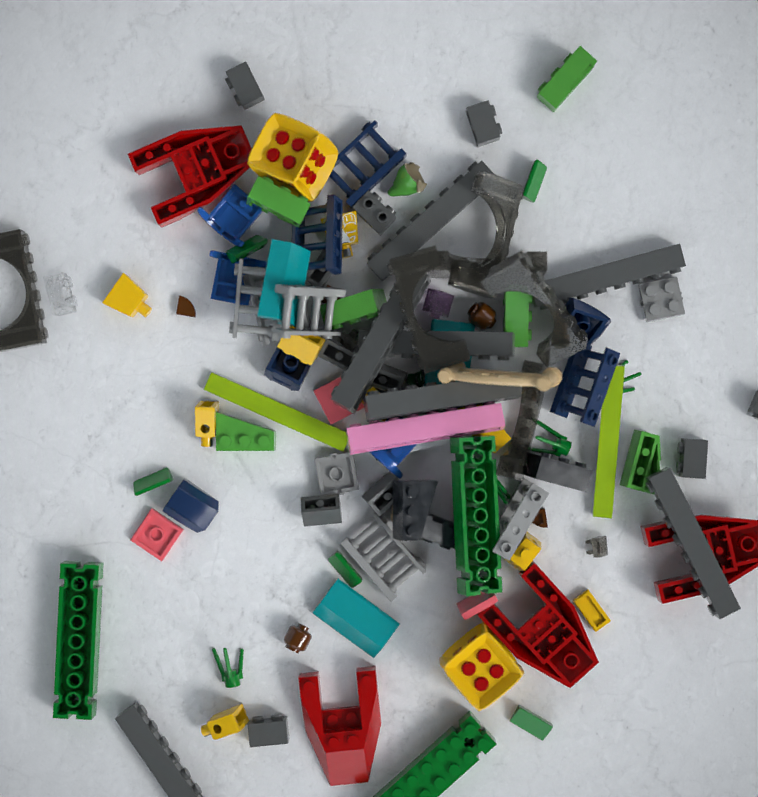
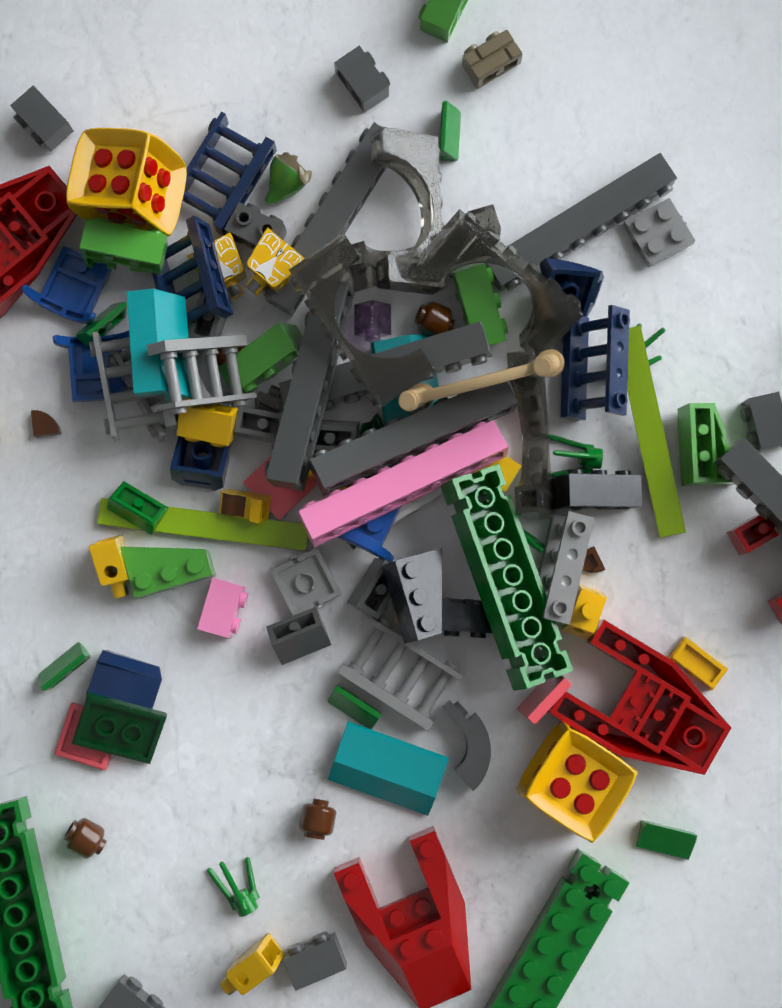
camera: 20 degrees left, 5 degrees down
(135, 603) = (85, 838): none -> reddish brown head
(180, 536) = (119, 728): none -> dark green tile
(234, 387) = (136, 507): none -> green slope
(273, 475) = (222, 608): none -> bright pink brick
(310, 407) = (245, 505): none -> yellow leg
(379, 245) = (271, 263): none -> yellow torso
(420, 626) = (478, 747): none -> dark grey arch
(581, 135) = (491, 58): none -> dark tan brick
(599, 546) = (681, 573): clear smoke tile -> none

